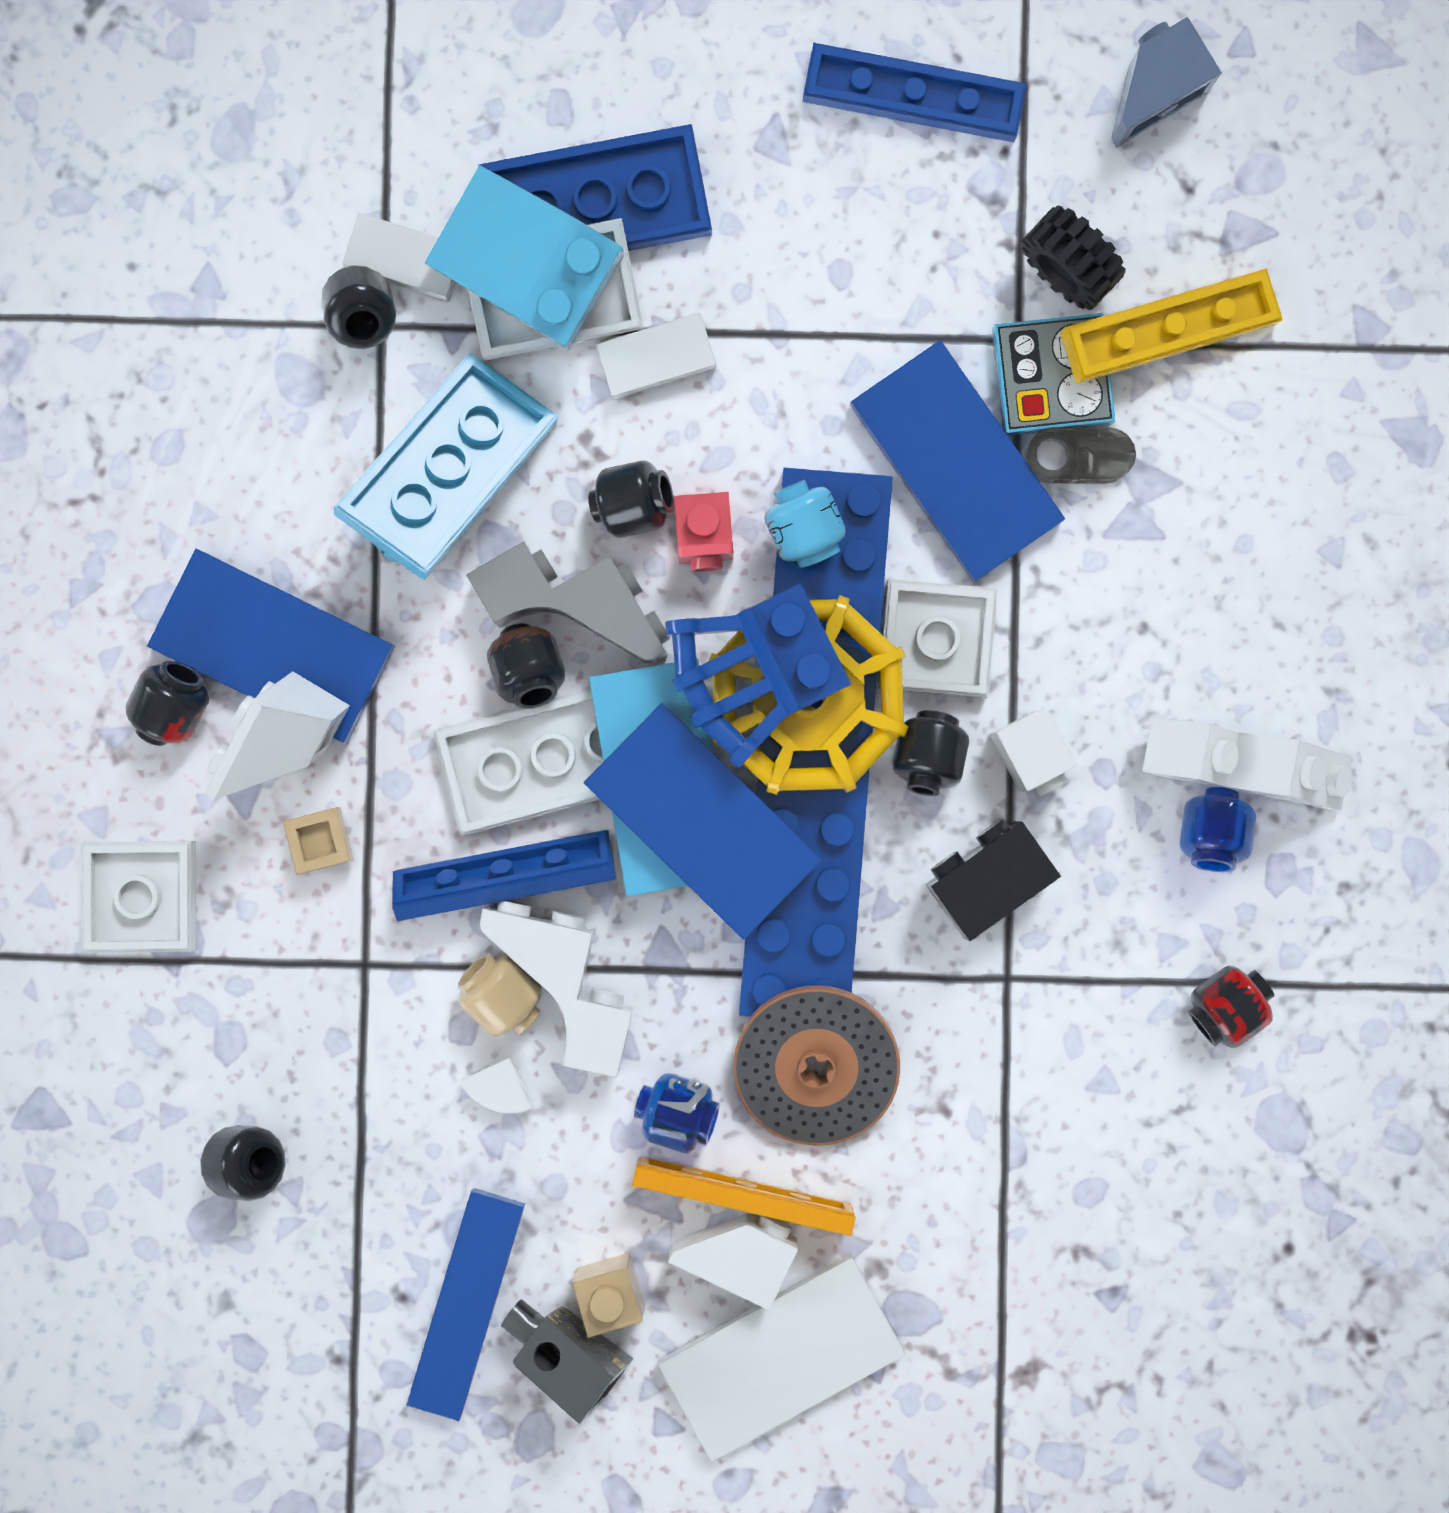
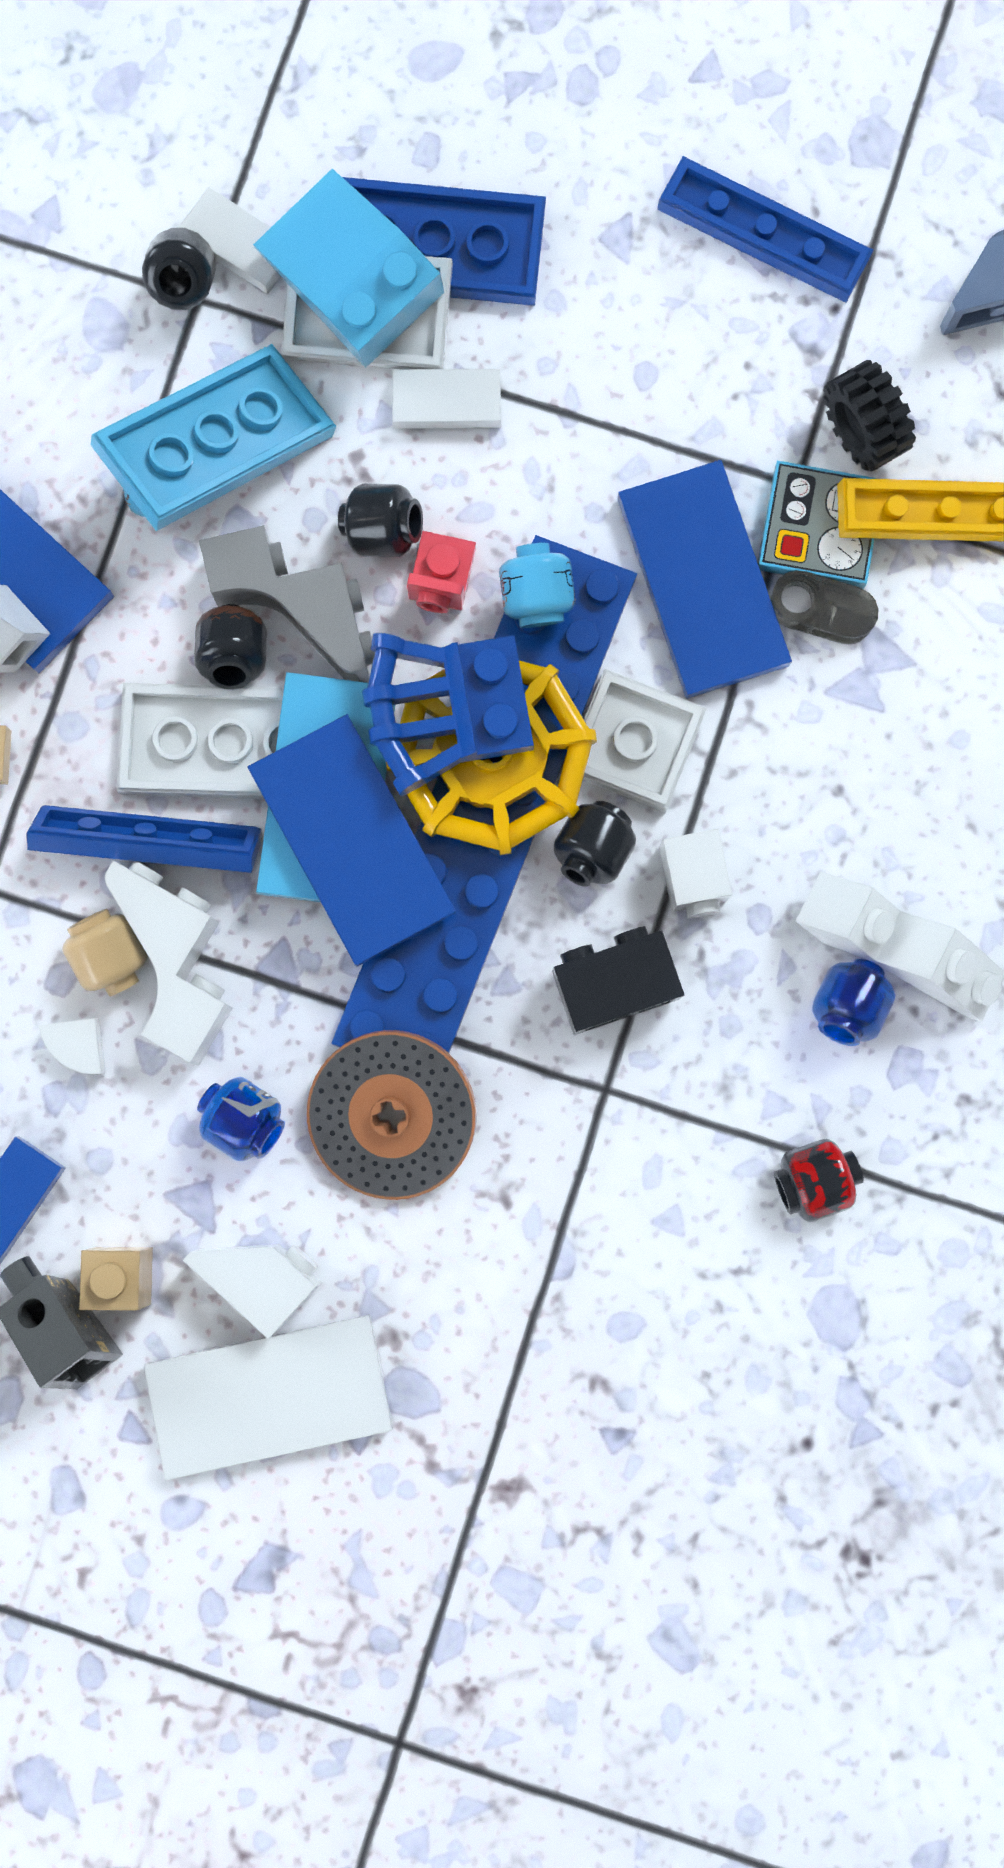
camera: 20 degrees right, 5 degrees down
(744, 1195) = (279, 1220): light orange tile -> none

